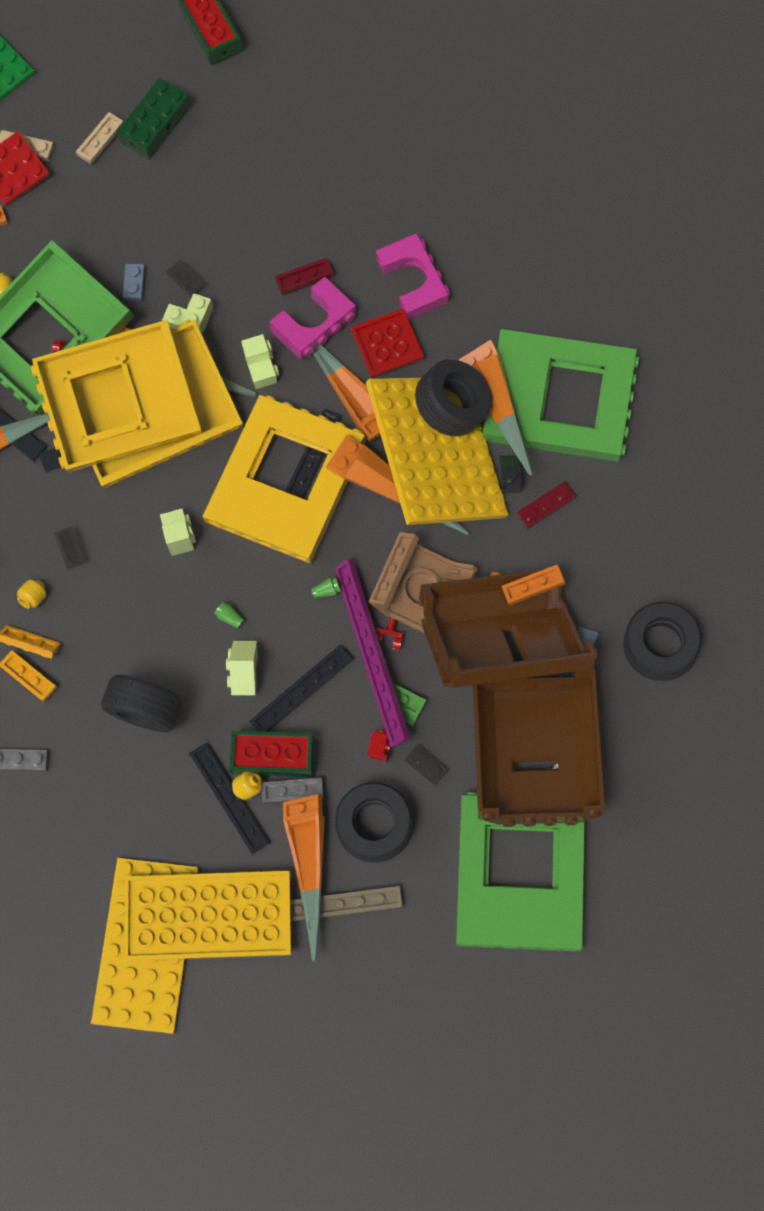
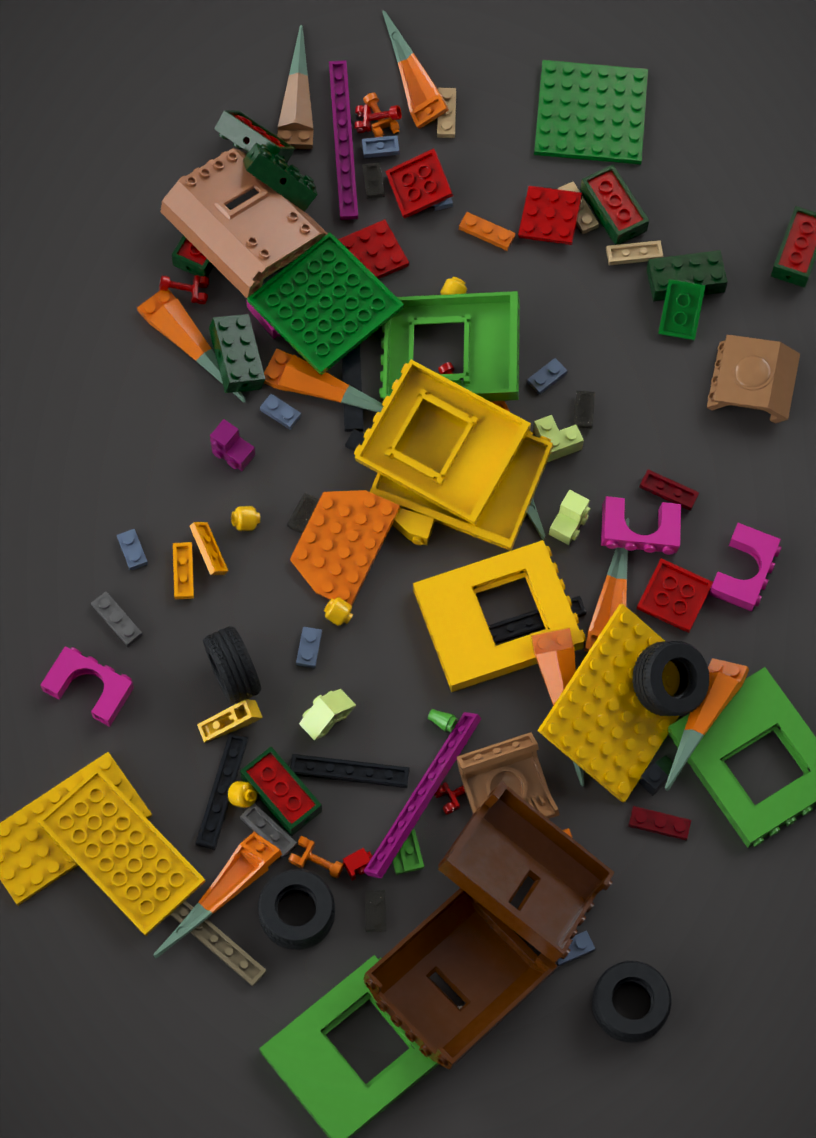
camera: 40 degrees right, 5 degrees down
(21, 825) = (73, 664): none -> dark pink arch
(50, 117) = (614, 205): none -> brick
(120, 539) = (343, 542): none -> orange plate
(151, 479) = (414, 526): none -> yellow slope
(171, 590) = (338, 611): none -> yellow head
(177, 143) = (681, 309): none -> green plate
(177, 636) = (309, 647): none -> sand blue plate
(178, 532) = (384, 576): yellowish green brick -> none
(179, 744) = (230, 720): none -> yellow slope
(227, 614) = (357, 667): bright green cone -> none
(276, 142) = (754, 376): none -> medium nougat panel
(366, 767) = (334, 868): none -> orange bar
(533, 585) = (581, 865): orange plate -> none

